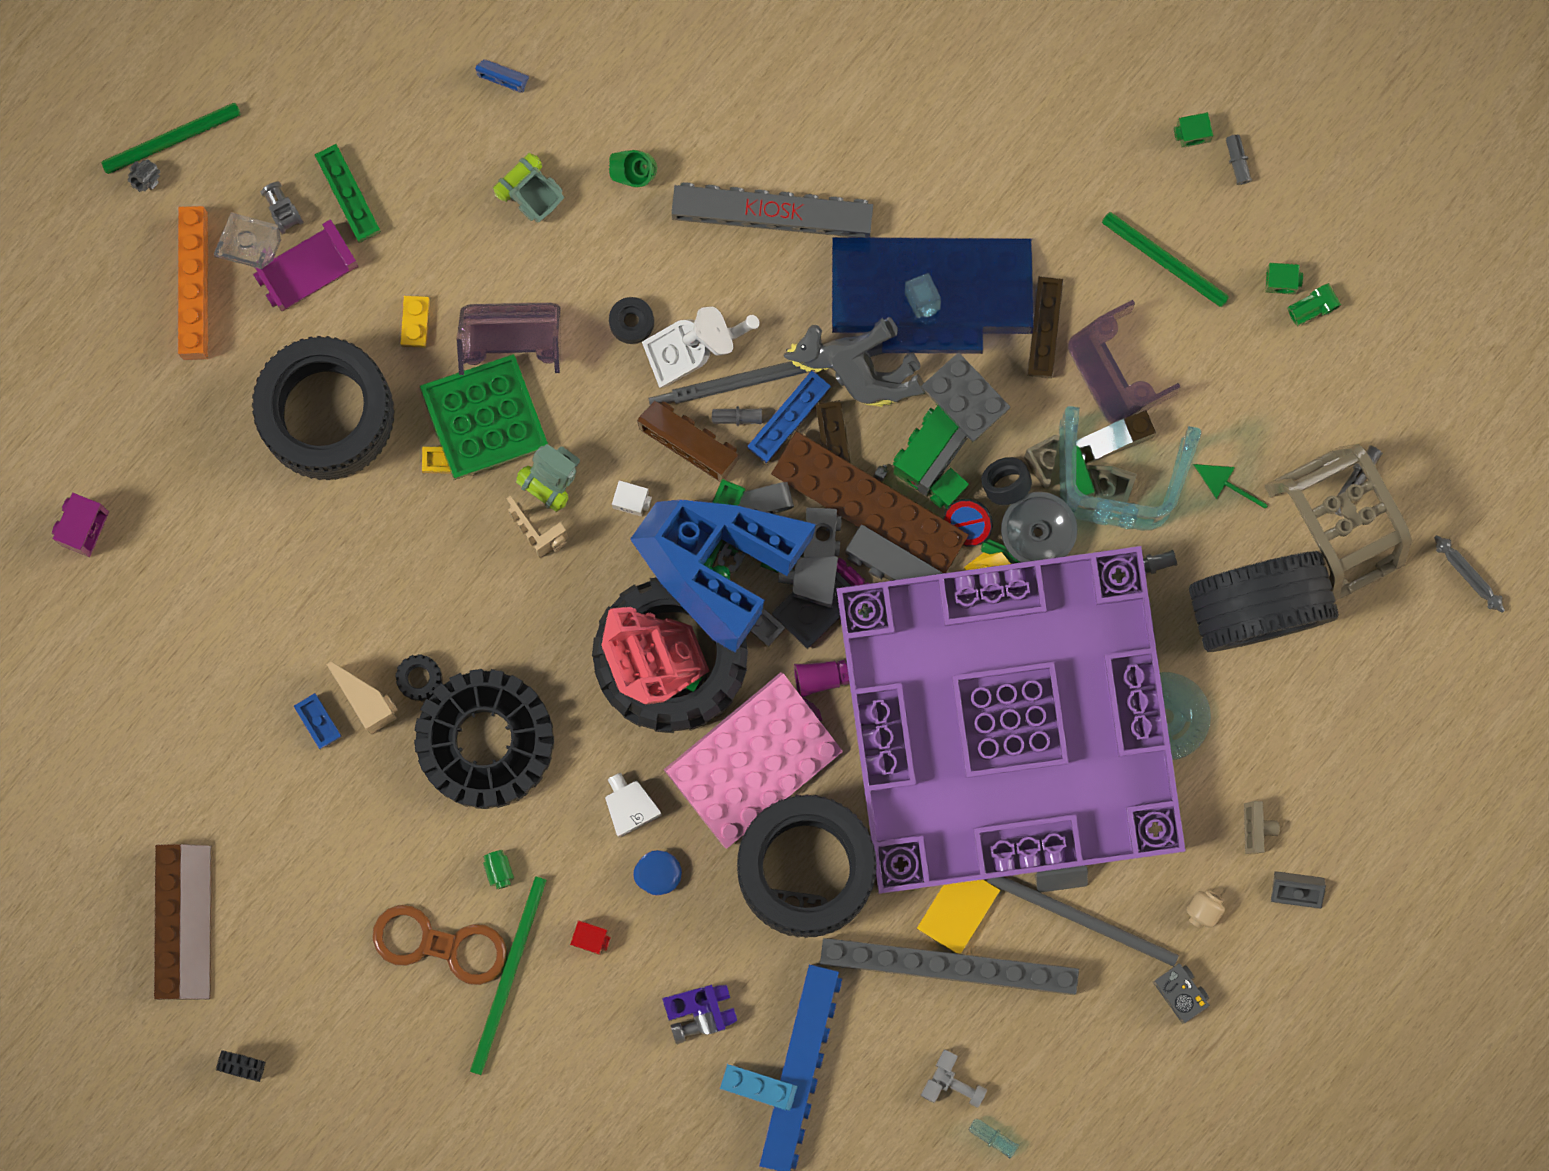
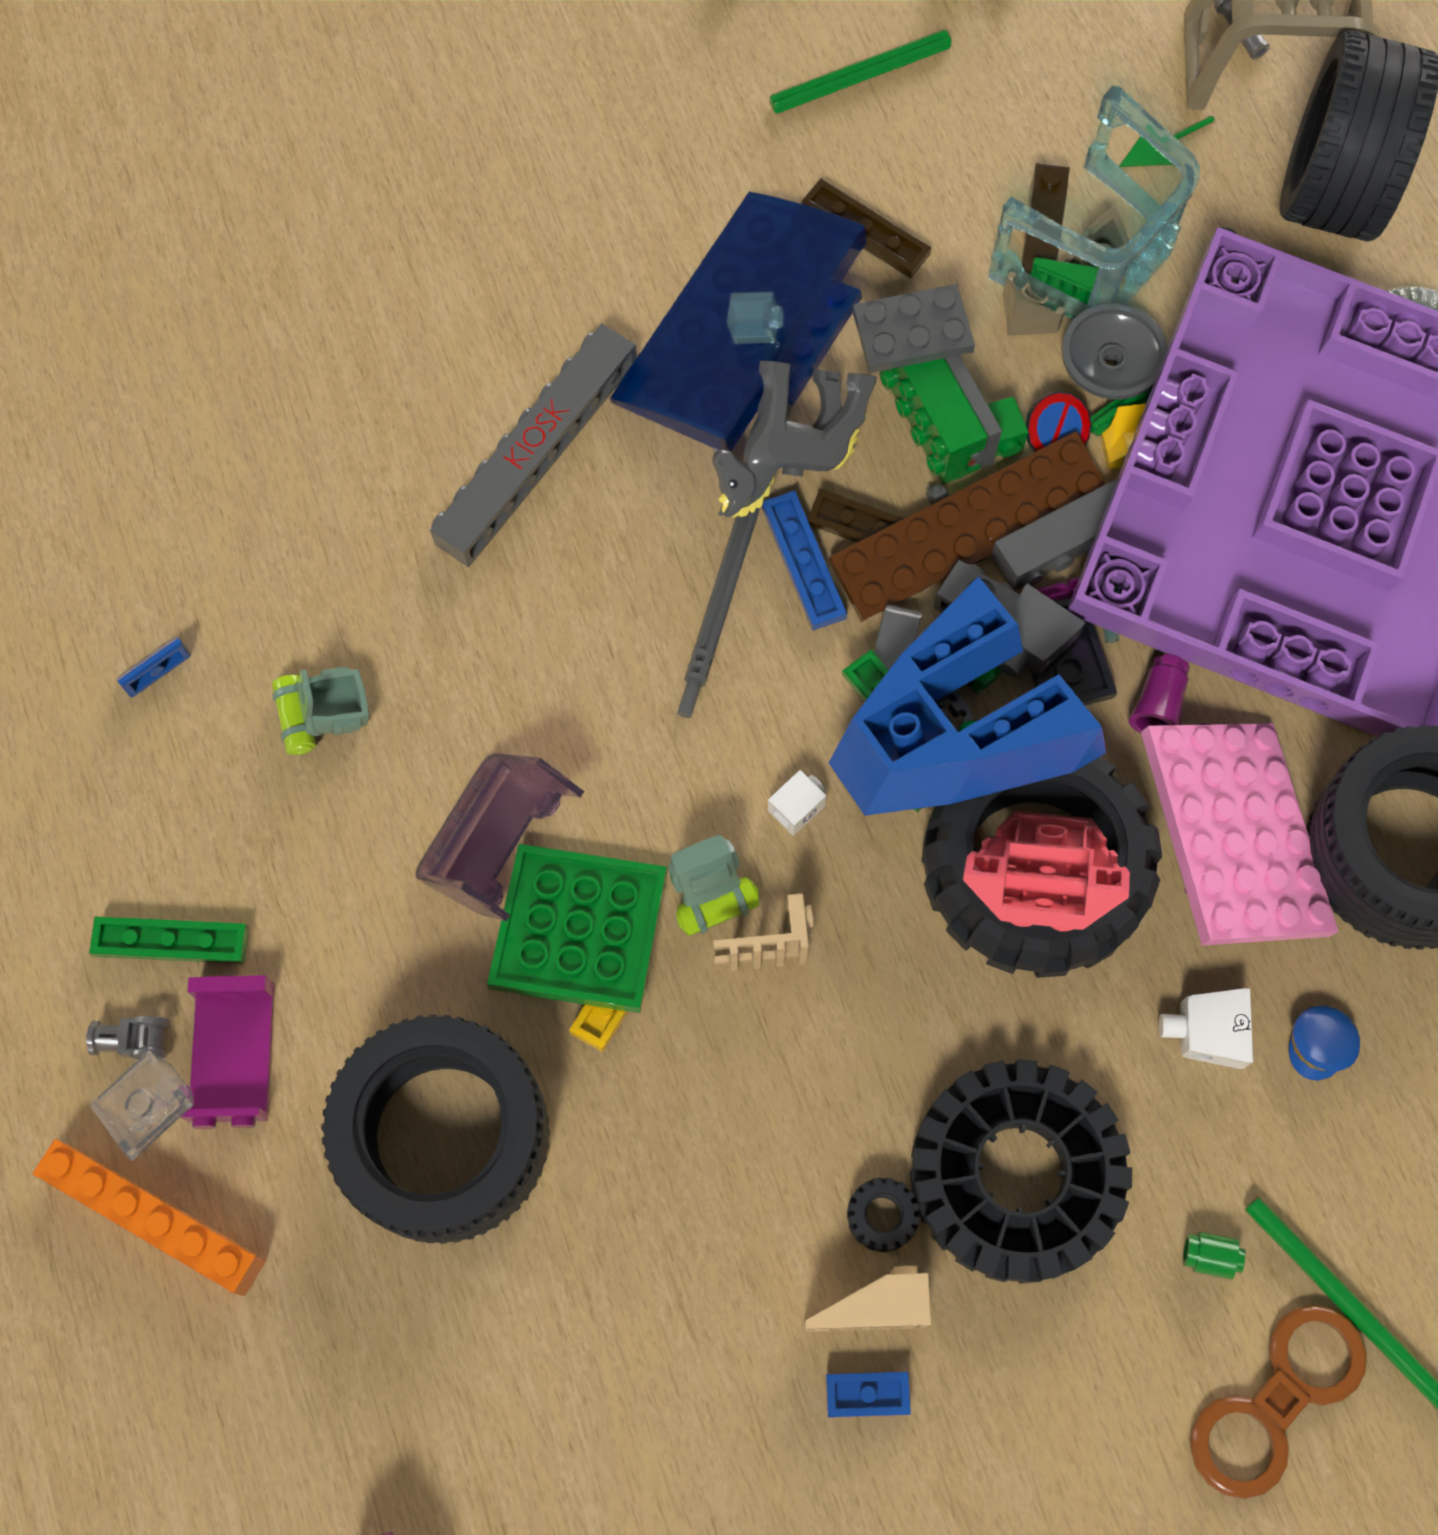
camera: 60 degrees left, 10 degrees down
(415, 321) = (394, 949): yellow plate -> none
(590, 938) = (1373, 1181): red brick -> none
(628, 306) = (562, 658): black tyre -> none
(630, 169) = (368, 578): green cap -> none
(675, 349) = (642, 637): white plate -> none
(687, 440) = (766, 691): reddish brown slope -> none
(737, 416) = (766, 619): flat silver axle -> none
(1000, 469) = (1015, 345): black tyre -> none
(1102, 374) = (958, 190): windscreen -> none

